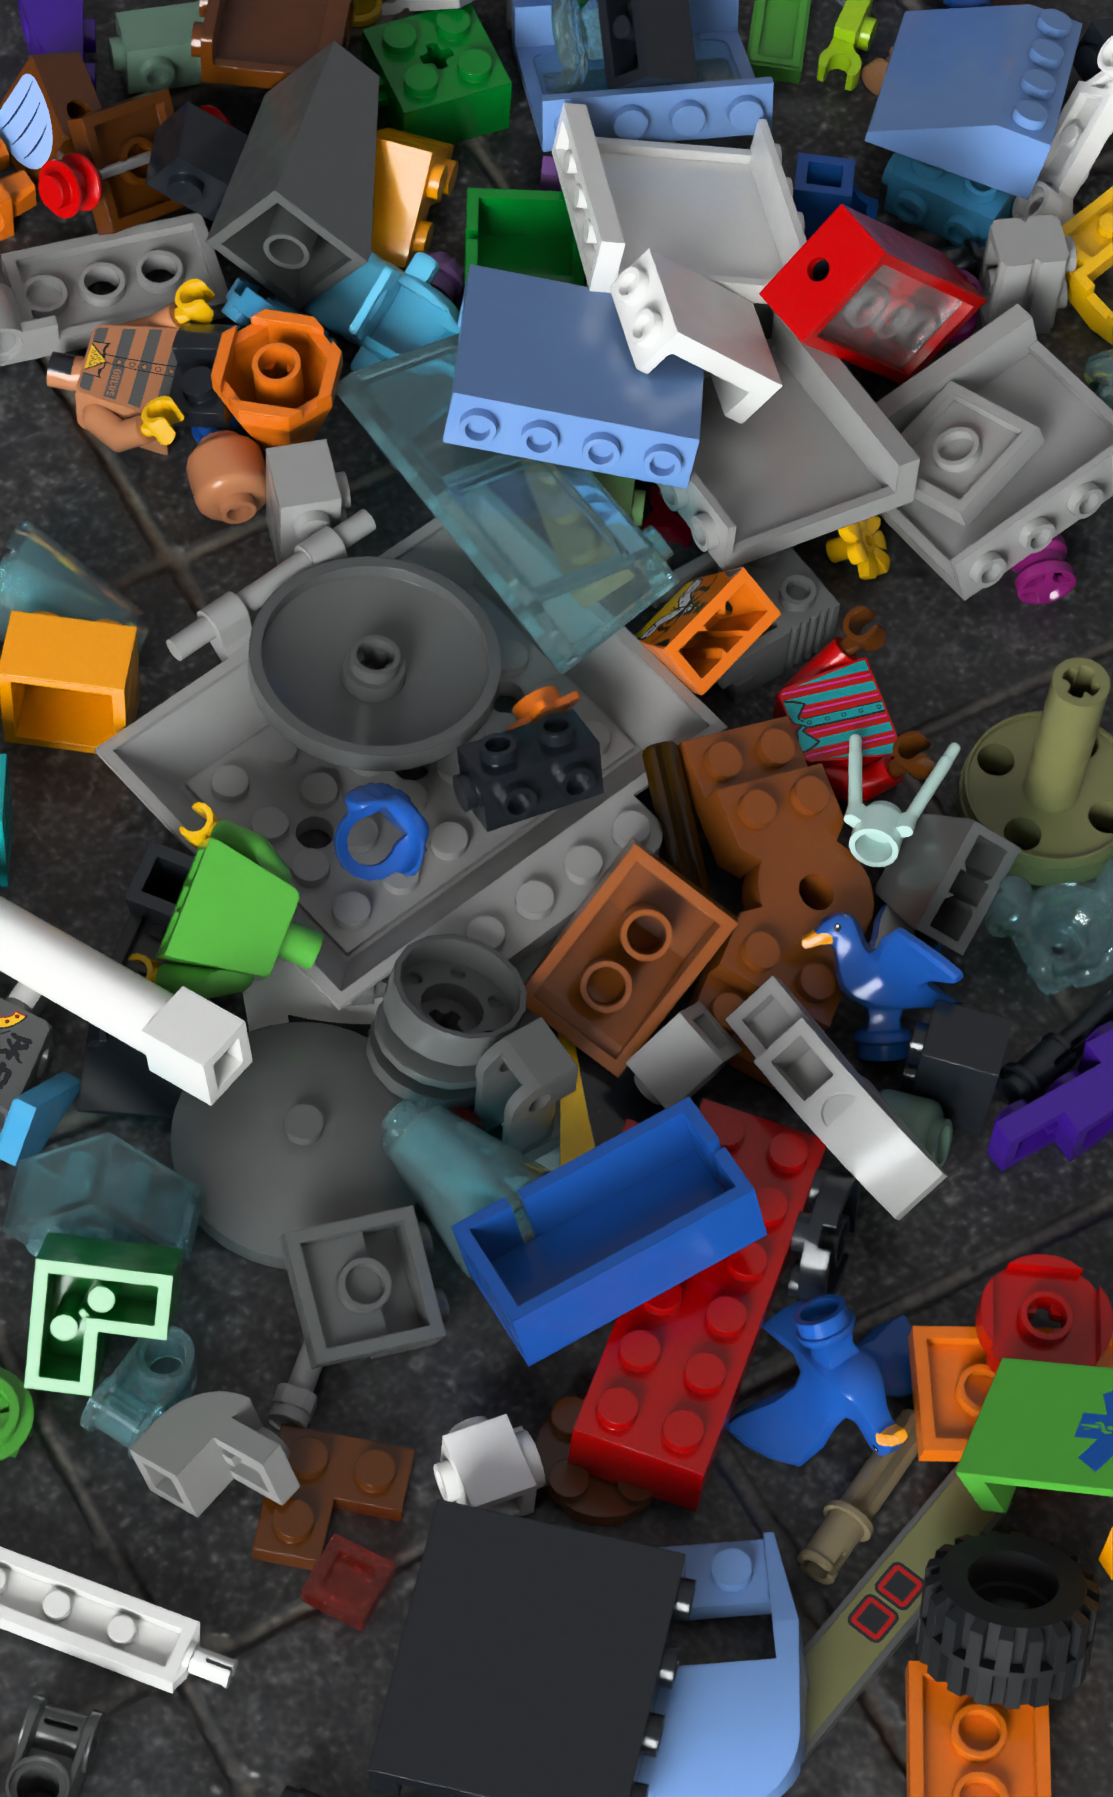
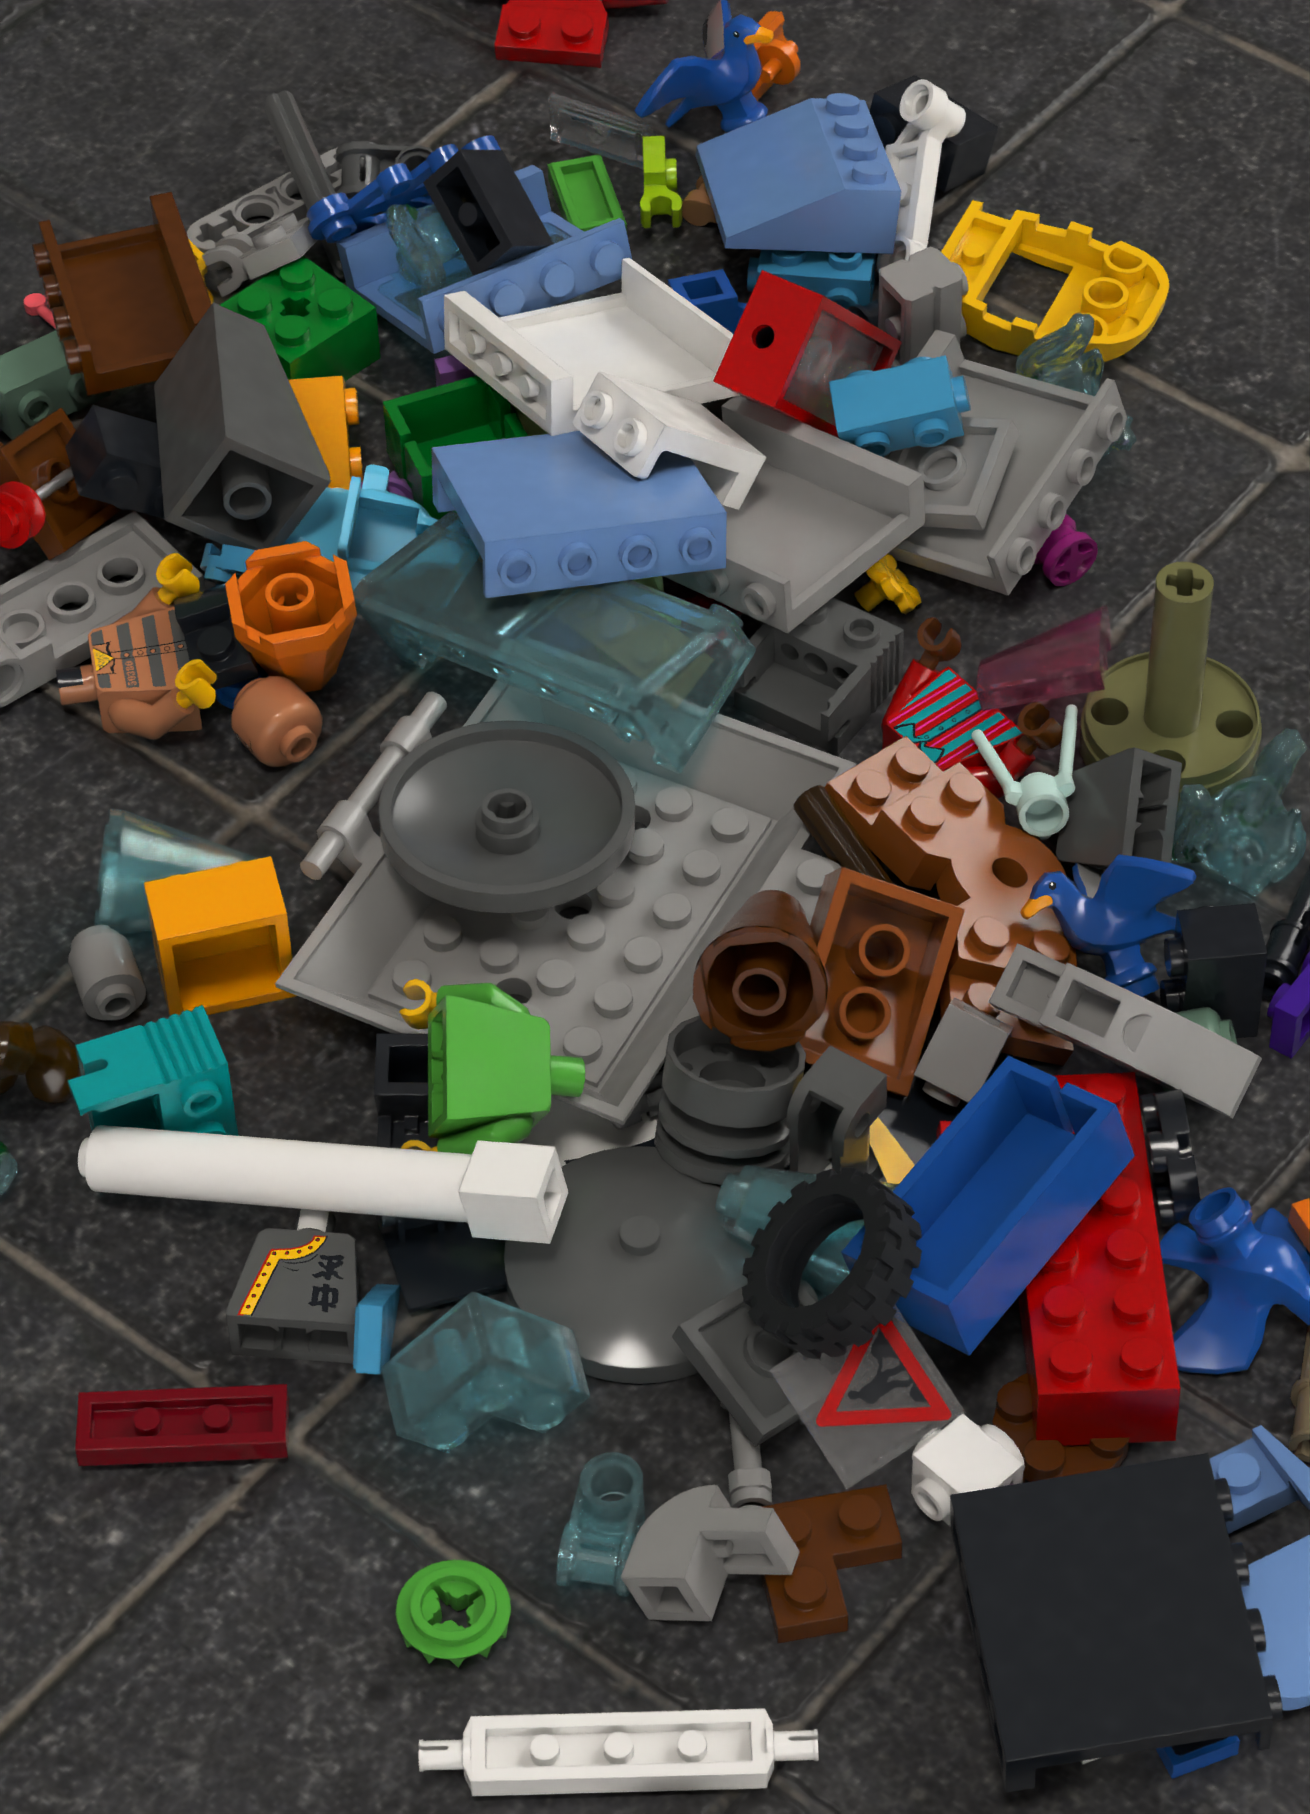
camera: 15 degrees left, 10 degrees down
(92, 1290) = (510, 1450): green brick -> none
(302, 494) = (359, 707): light grey brick -> none
(348, 1582) = (884, 1623): clear red plate -> none
(396, 807) = (598, 934): blue piece -> none
(427, 1360) = (870, 1400): none -> clear piece
(464, 1265) = (864, 1295): none -> black tyre
(516, 917) = (762, 975): none -> reddish brown cone
(528, 770) = (698, 856): black brick -> none
(542, 703) = (681, 806): orange plate -> none
(699, 636) = (793, 701): orange torso -> none
(935, 377) = (900, 406): none -> dark azure brick
(962, 690) = (1048, 665): none -> clear pink slope

